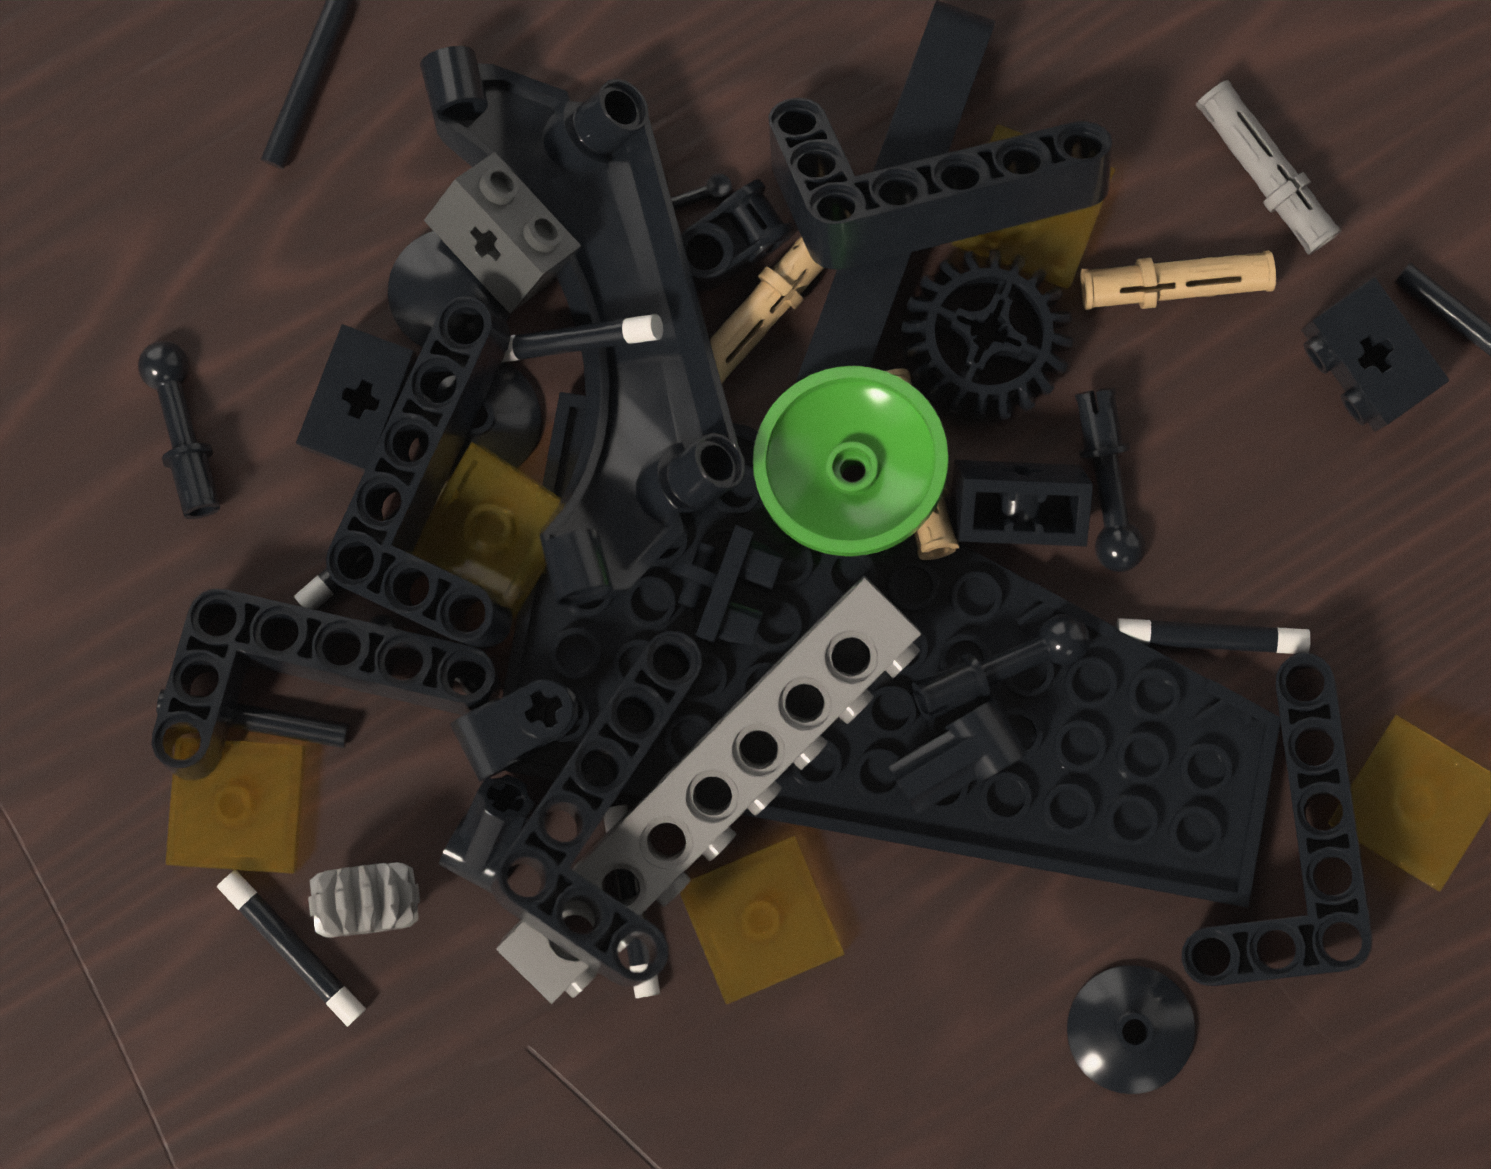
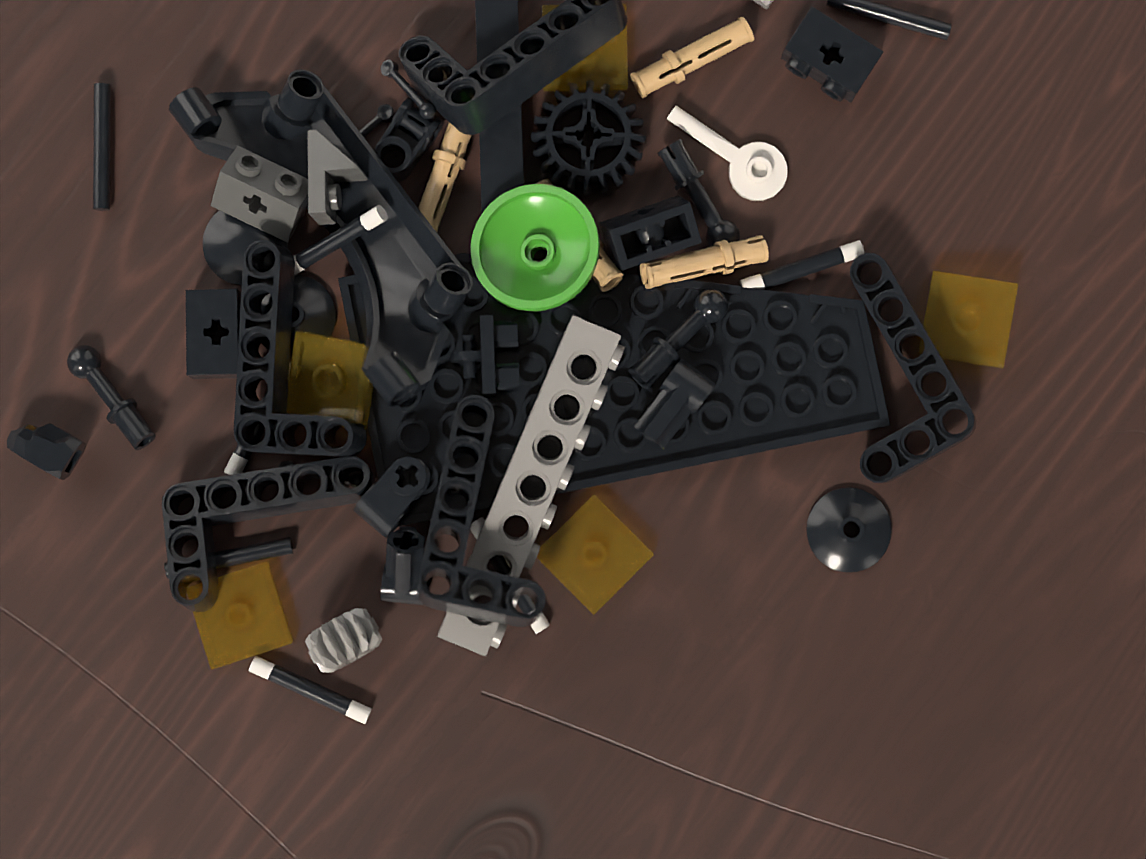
camera: 25 degrees left, 0 degrees up
(63, 466) = (47, 448): none -> black rock
(603, 233) = (325, 169): none -> slope
(750, 129) = (390, 69): none -> black hinge
(1104, 577) = (720, 258): none -> tan pin
(1202, 471) = (754, 169): none -> white piece

